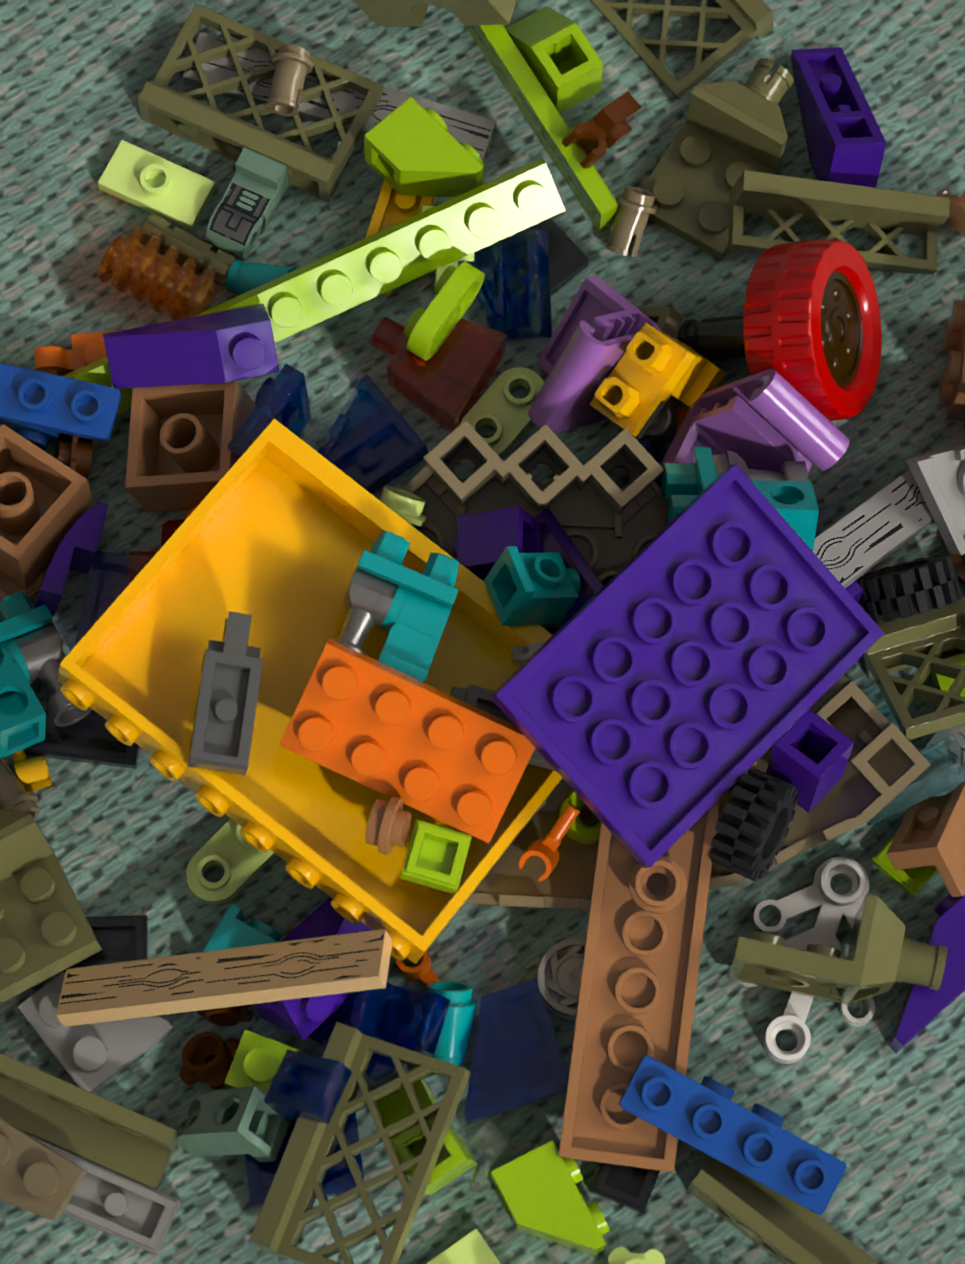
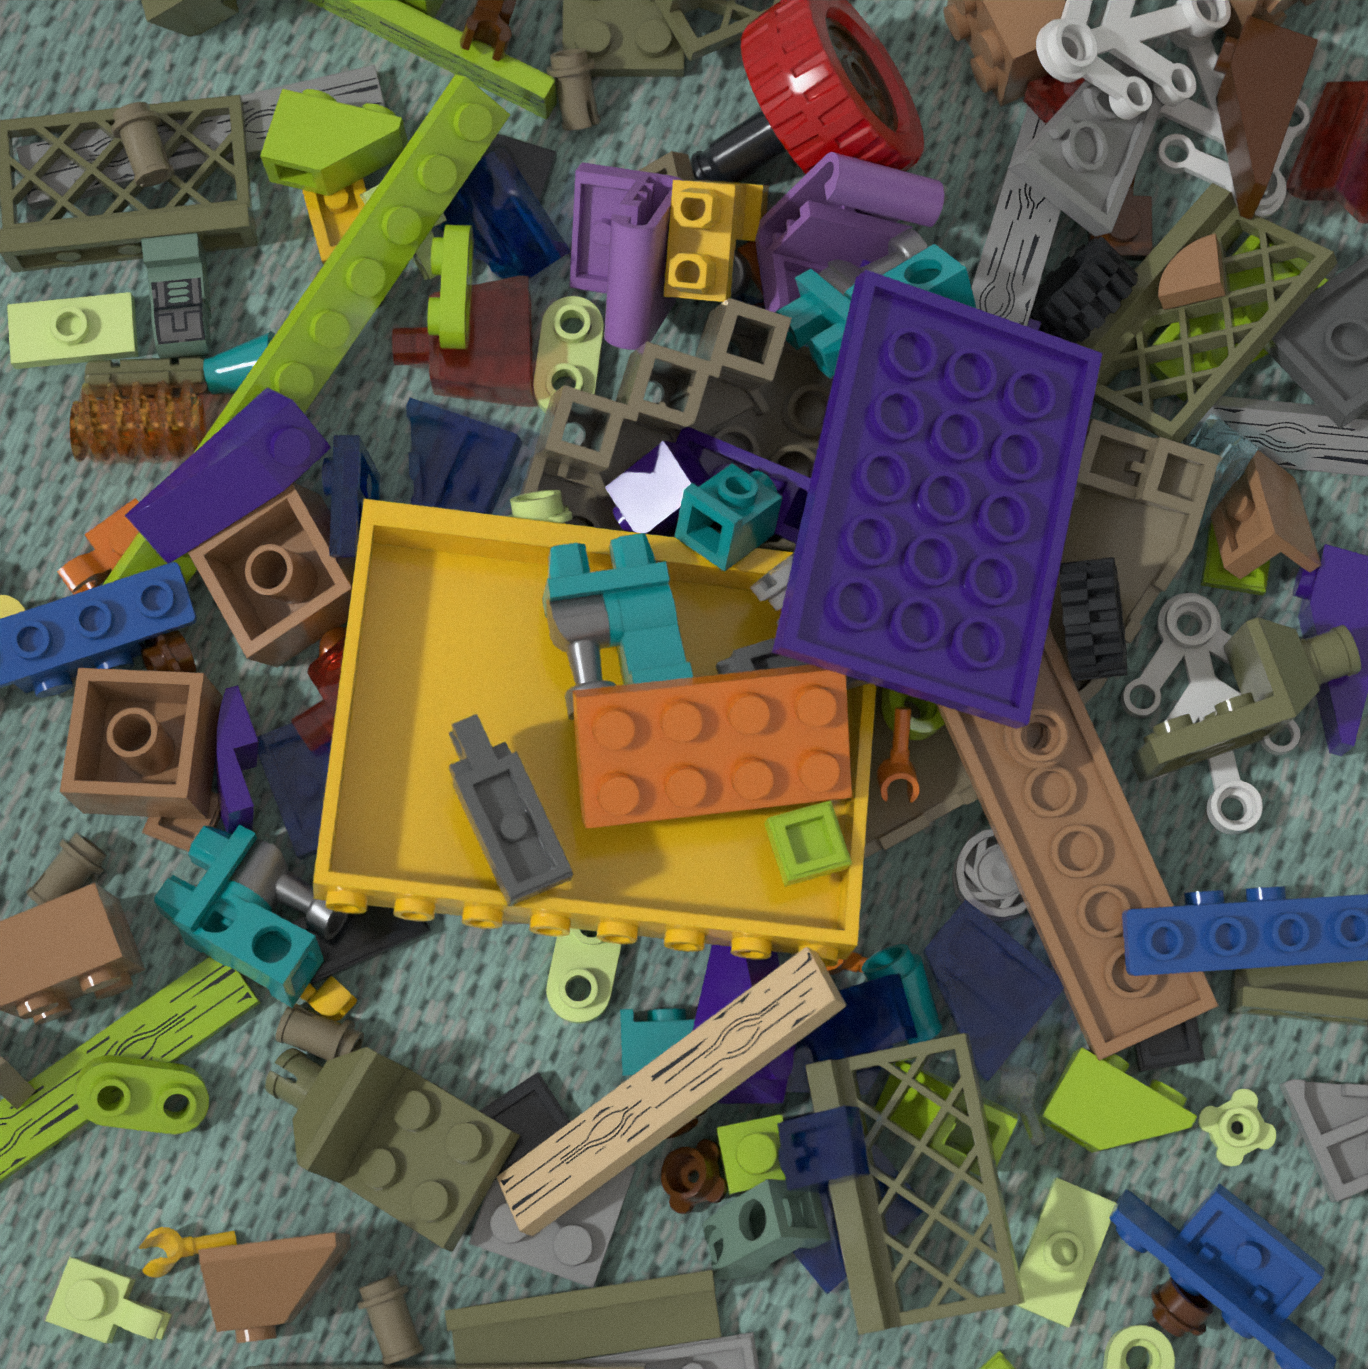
camera: 30 degrees left, 5 degrees up
(387, 825) = (744, 841): medium nougat plate -> none
(811, 758) = (1105, 519): dark purple brick -> none

